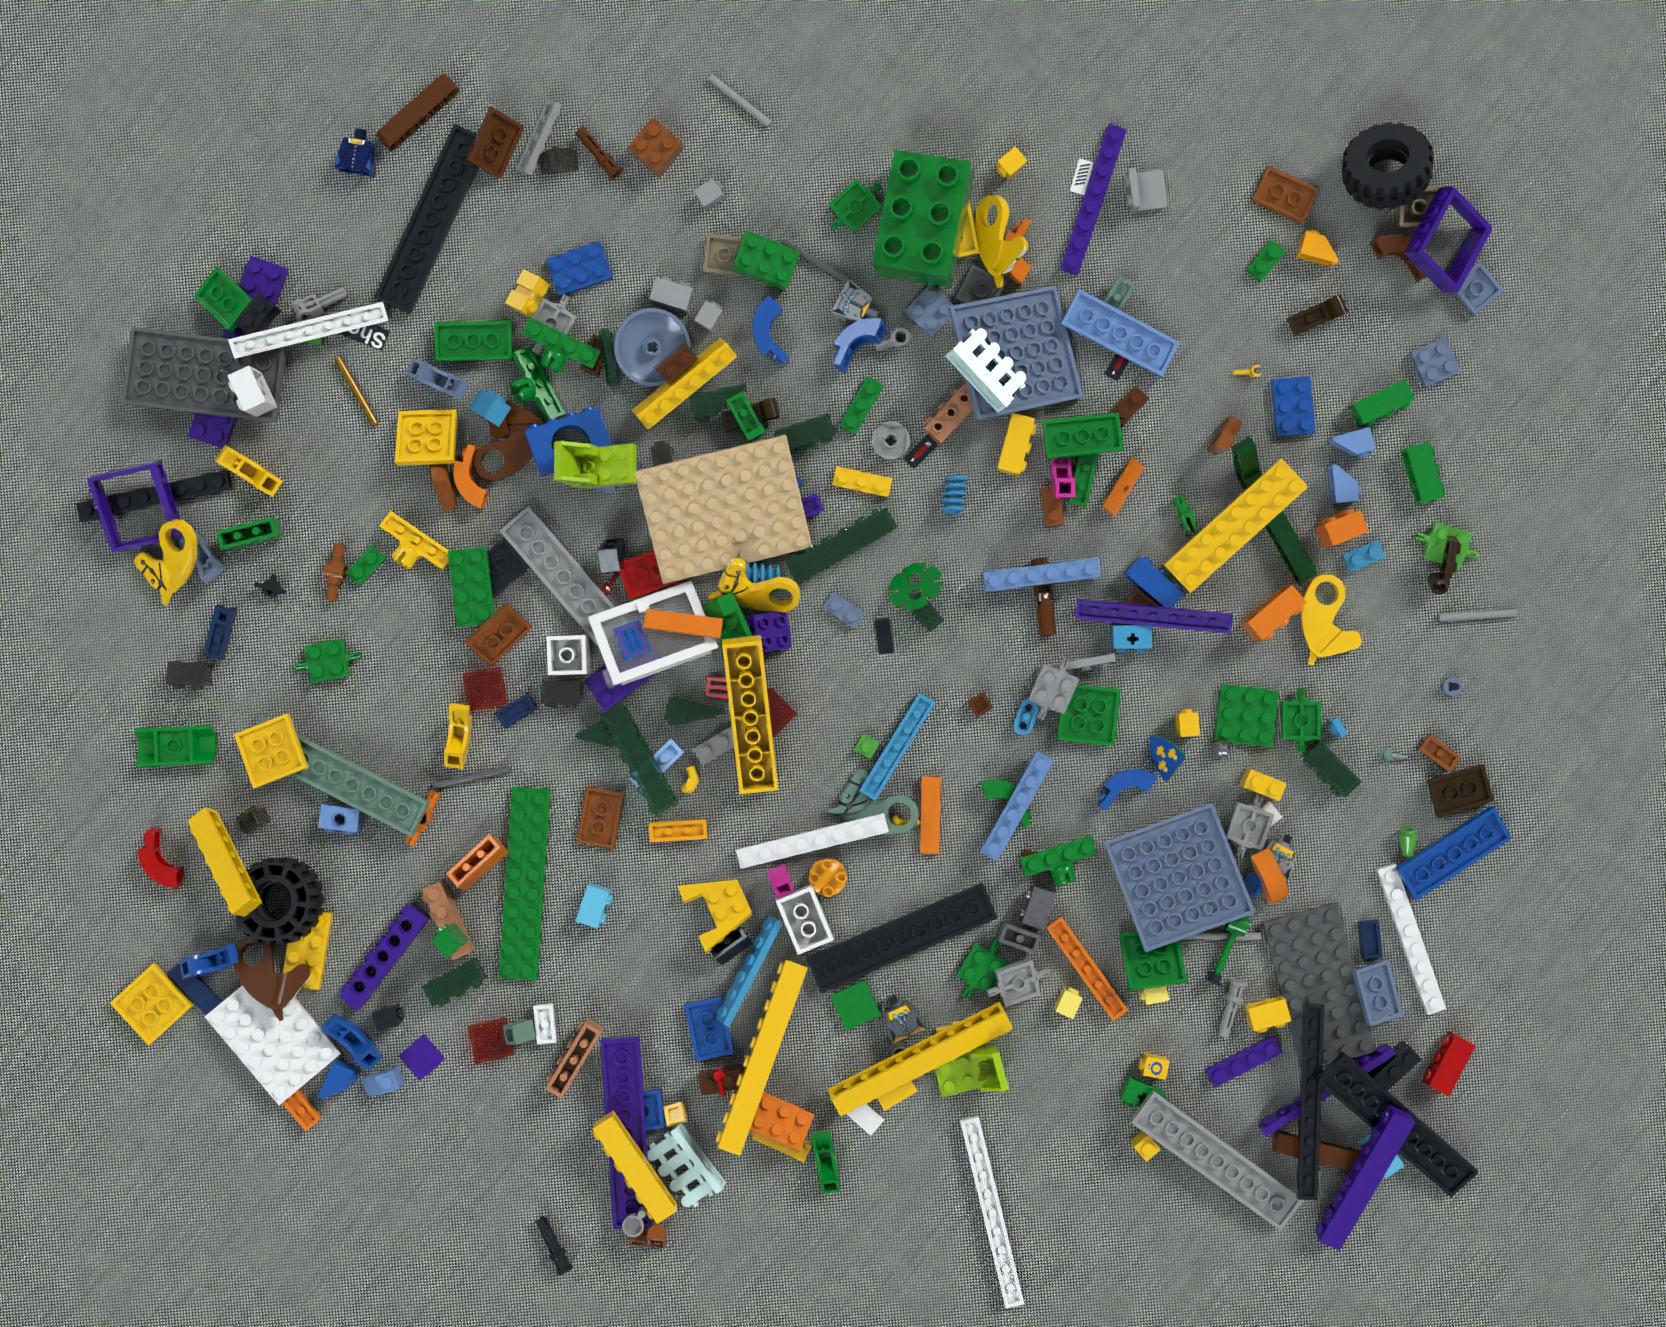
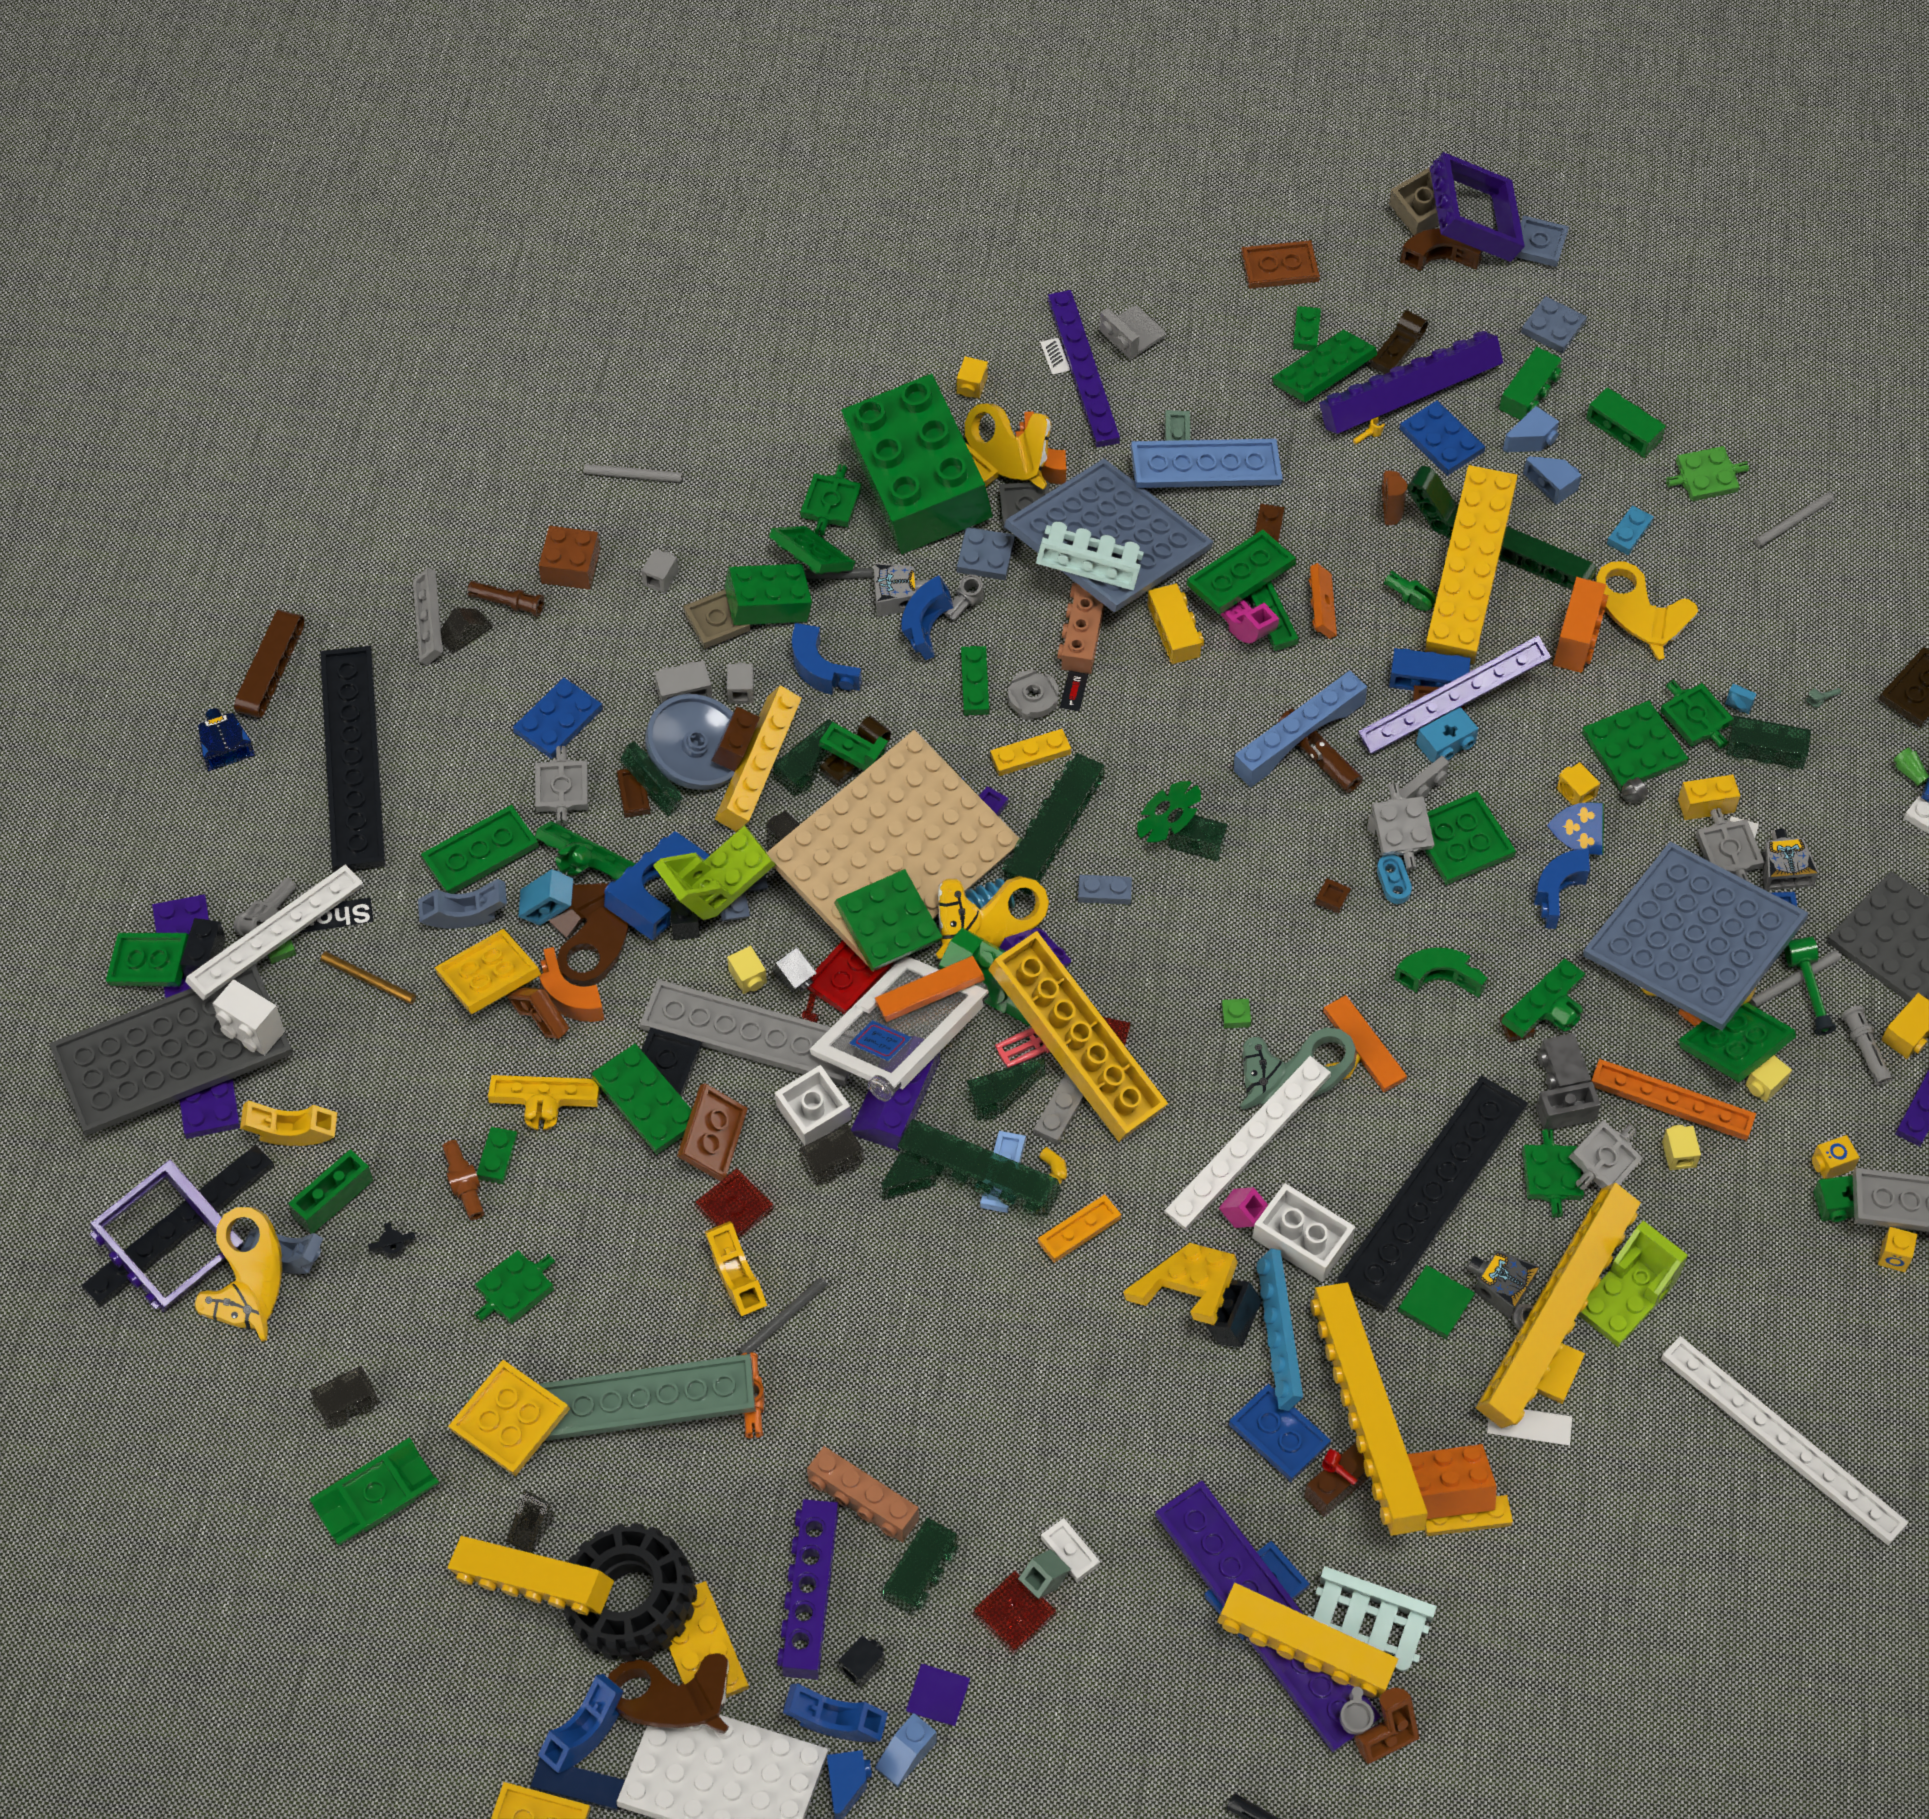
camera: 30 degrees left, 30 degrees down
(155, 865) = (437, 1656): red arch -> none
(220, 632) = (356, 1331): dark blue plate -> none
(329, 819) = (655, 1442): medium blue brick -> none
(449, 939) = (885, 1485): green brick -> none
(477, 862) = (856, 1402): orange brick -> none
(495, 143) = (381, 643): reddish brown plate -> none
(516, 710) = (788, 1211): dark blue tile -> none
(524, 883) = (932, 1403): green plate -> none
(527, 294) = (515, 767): yellow brick -> none
(559, 347) = (588, 798): green plate -> none
(571, 1063) = (1137, 1563): nougat brick -> none
(587, 533) = (747, 970): none -> light yellow brick
(594, 905) = (1036, 1371): medium azure brick -> none
(600, 817) = (973, 1271): dark orange tile -> none
(675, 1114) = (1311, 1559): yellow plate -> none
(687, 559) = (888, 920): none -> green plate
(808, 433) = (943, 726): clear green brick -> none
(814, 242) = (811, 549): none -> green plate
(826, 1162) = (1535, 1499): green arch -> none
(827, 877) = (1298, 1172): light orange dish -> none
(884, 636) = (1170, 892): black sticker -> none
(897, 747) = (1272, 988): dark azure plate -> none
(954, 494) = (1145, 705): dark azure piece -> none
(1017, 805) = (1457, 974): medium blue arch -> none
(1052, 508) = (1260, 663): dark orange plate -> none
(1116, 367) = (1226, 500): black sticker -> none
(1254, 301) = (1324, 366): none -> green plate
(1270, 876) = (1796, 871): orange arch -> none
(1301, 354) = (1411, 382): none -> dark purple brick
(1316, 249) = (1351, 290): light orange slope -> none
(1340, 529) = (1584, 509): orange brick -> none
(1387, 143) = (1363, 176): black tyre -> none
(1439, 753) = (1869, 664): dark orange plate -> none
(1448, 566) = (1724, 484): dark brown plate -> none
(1452, 686) = (1827, 597): sand blue tile -> none

